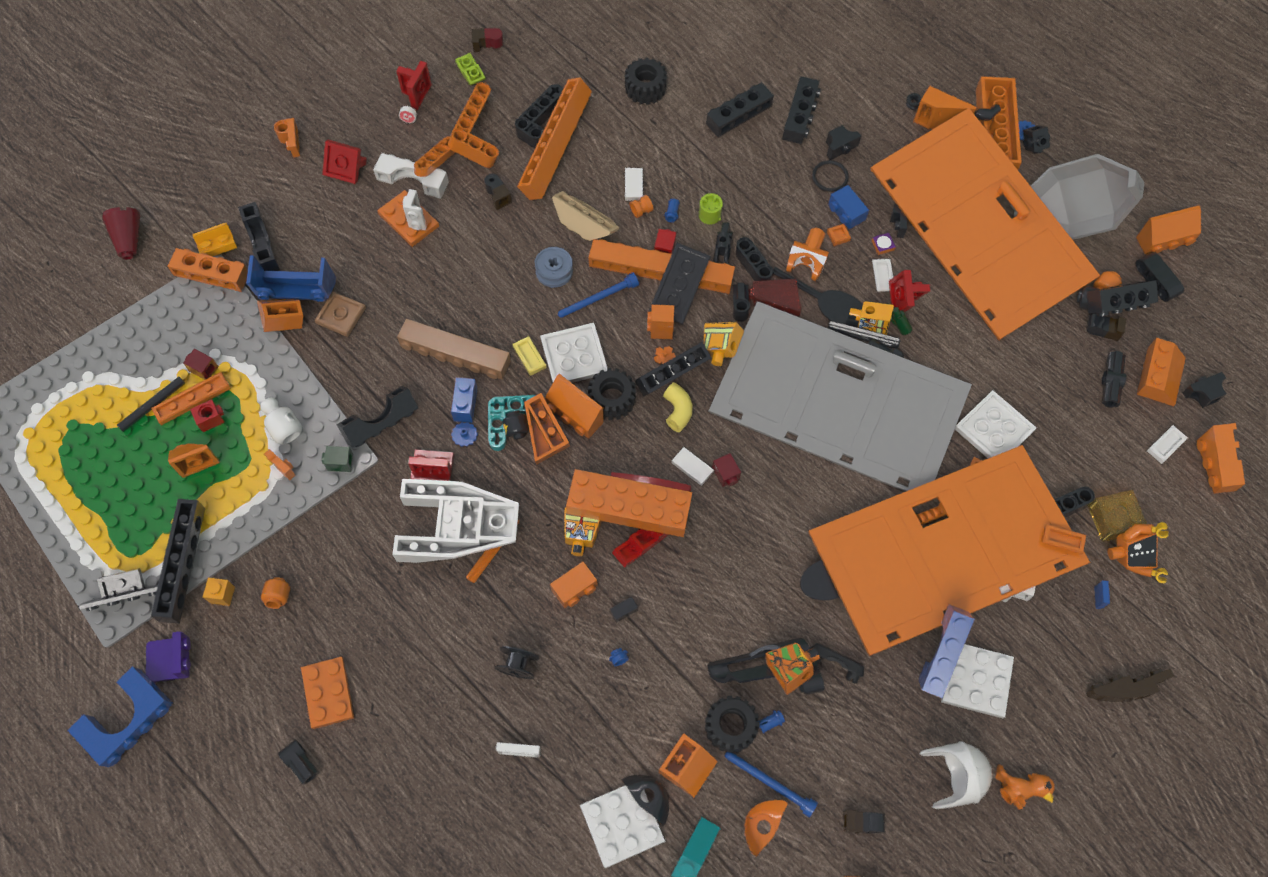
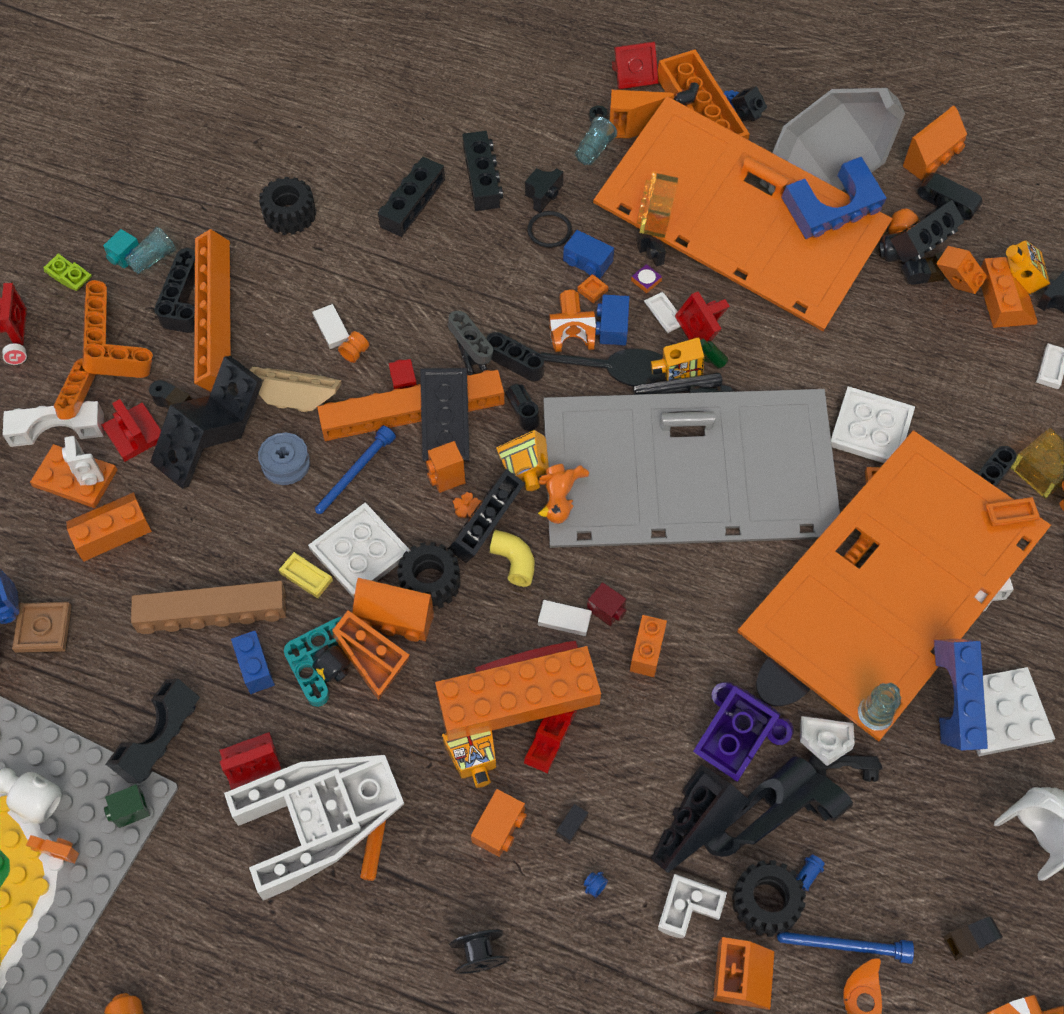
camera: 25 degrees left, 5 degrees down
(413, 263) = (107, 527): none -> orange slope
(461, 202) = (131, 430): none -> red bracket
(464, 434) = (272, 704): blue piece -> none
(486, 38) = (71, 229): leg -> none
(511, 217) = (206, 421): none -> black bracket
(515, 67) = (119, 247): none -> teal brick
(533, 76) = (150, 251): none -> clear light blue plant
(671, 214) = (393, 342): blue pin -> none
(673, 696) = (686, 897): none -> white brick
(710, 209) = (435, 317): lime piece -> none
(718, 646) = (705, 811): none -> black wedge
(723, 240) = (470, 346): none -> dark grey beam
(735, 369) = (559, 484): none -> orange animal
(740, 512) = (648, 646): none -> orange brick
(773, 600) = (740, 730): none -> dark purple piece
(777, 294) = (561, 380): clear red slope -> none
(791, 665) = (804, 794): torso -> none
(833, 636) = (826, 738): none -> white plate
(841, 265) = (614, 319): none -> blue brick
(875, 636) = (879, 707): none -> clear light blue plant
(900, 120) = (595, 141): none -> clear light blue plant
(915, 190) = (657, 204): none -> clear yellow brick
(962, 72) = (635, 65): none -> red bracket
(1037, 251) = (816, 218): none -> blue arch
(1113, 379) = (963, 321): black piece -> none
(1132, 338) = (961, 269): none -> orange brick
(1189, 357) = (1025, 259): none -> light orange torso

